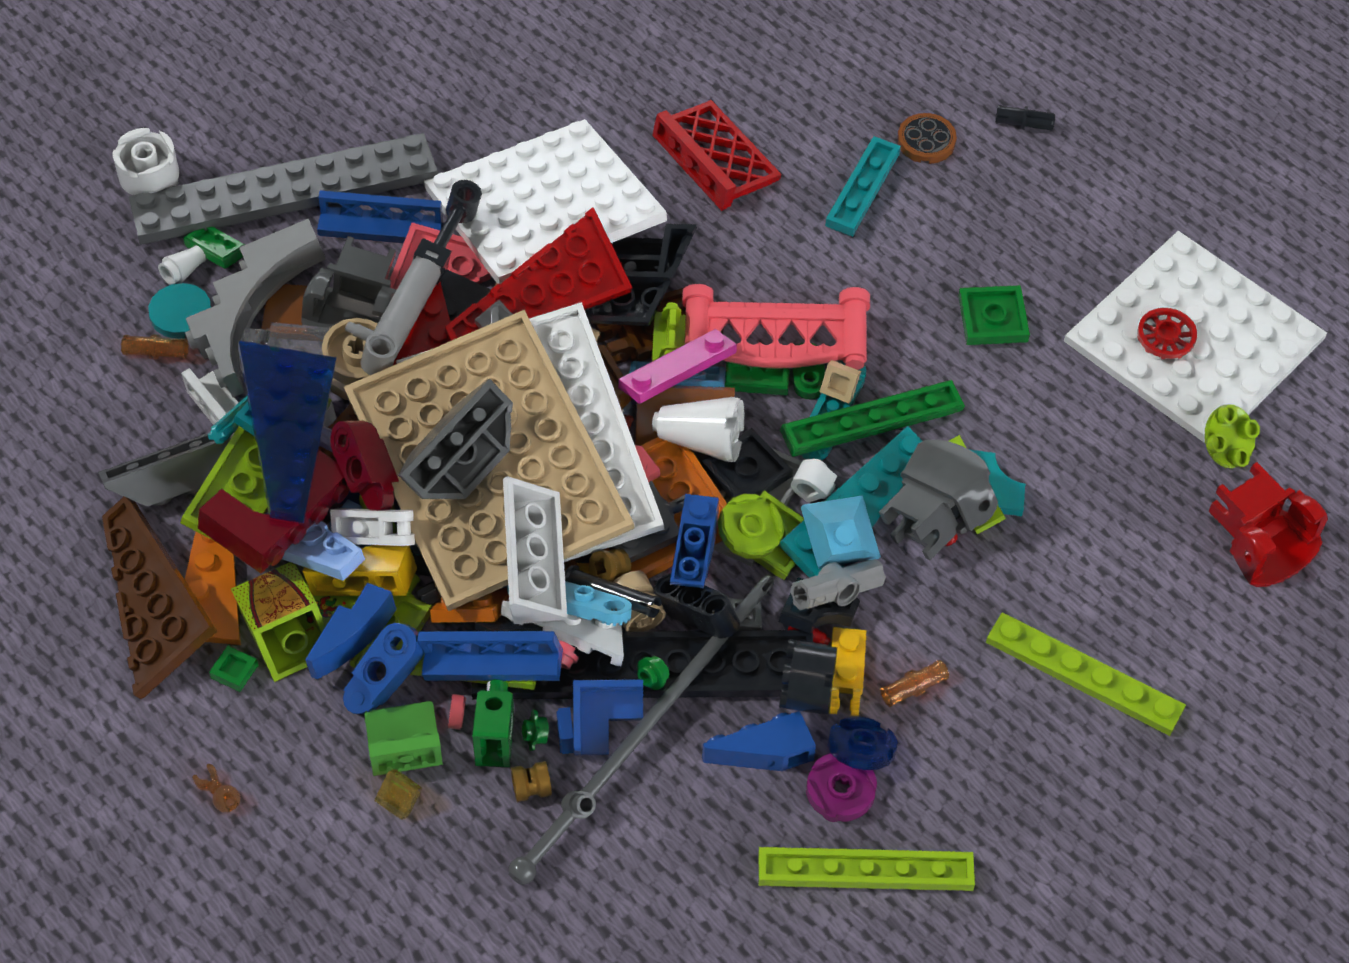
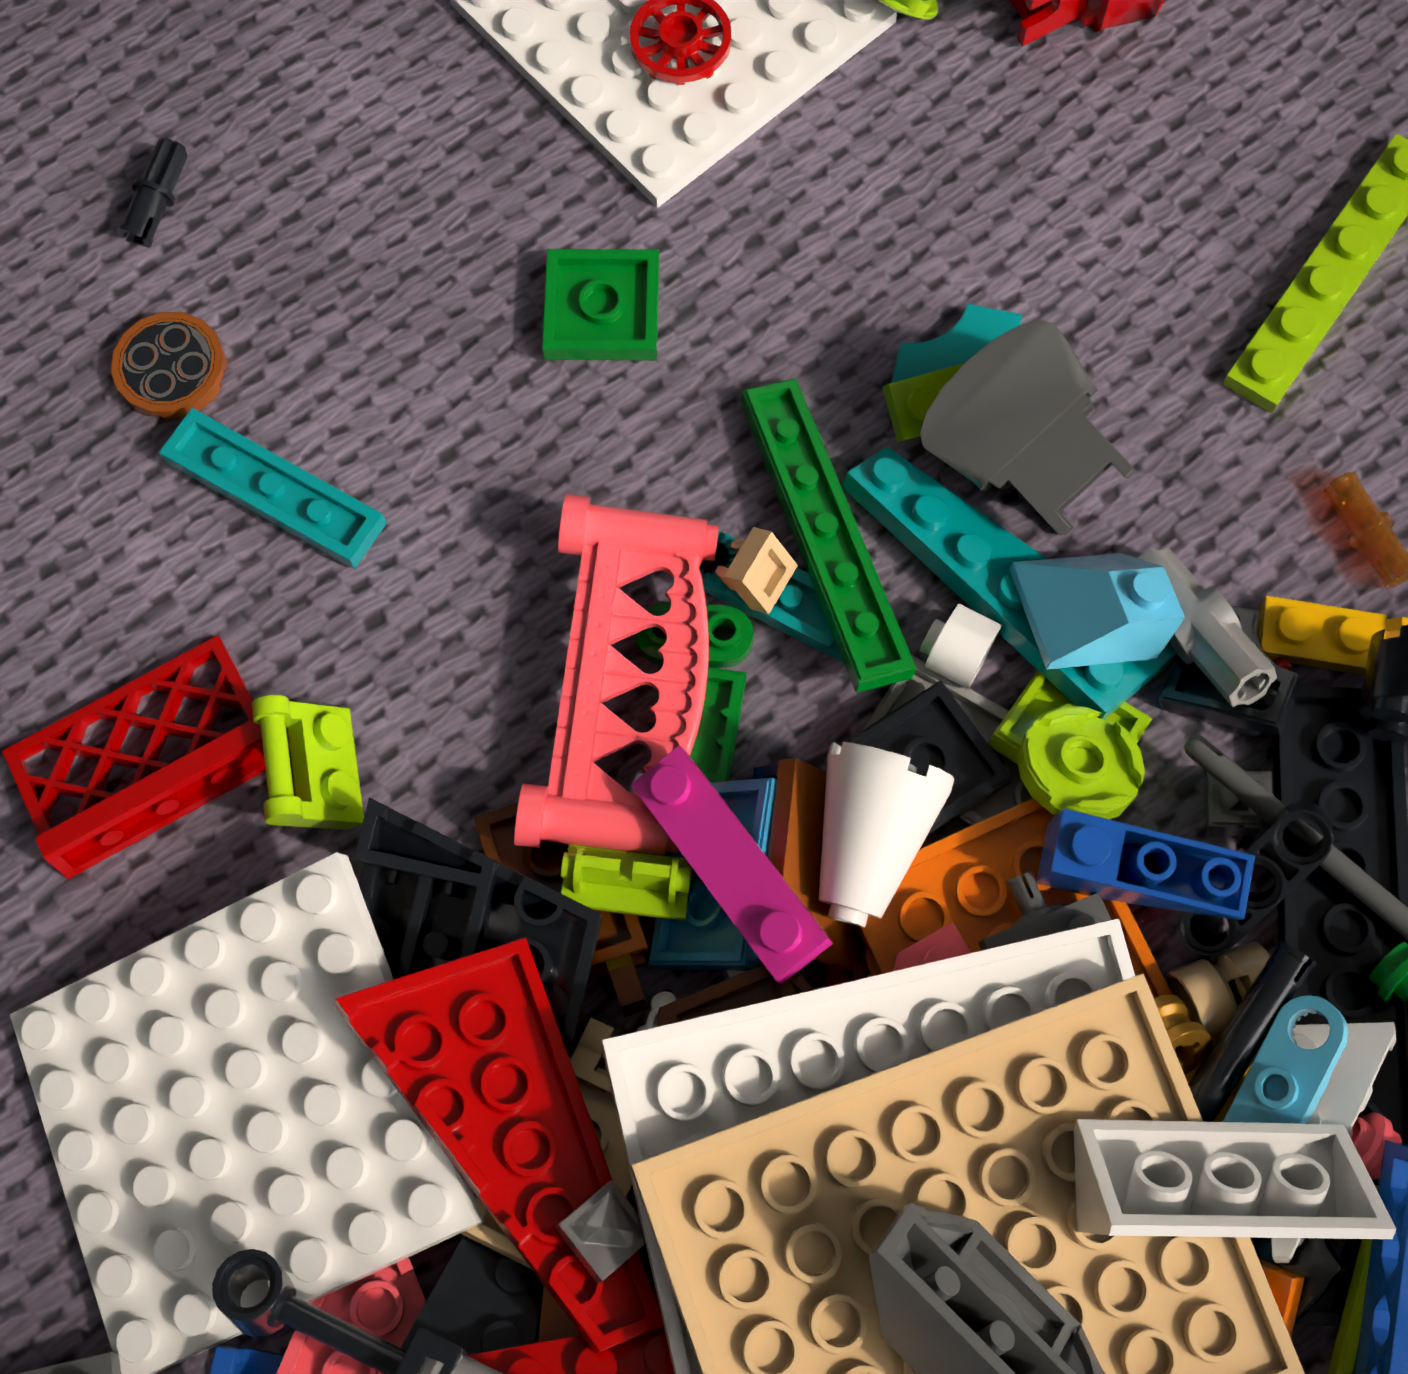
camera: 80 degrees left, 15 degrees up
(720, 218) = (321, 764): none -> lime plate

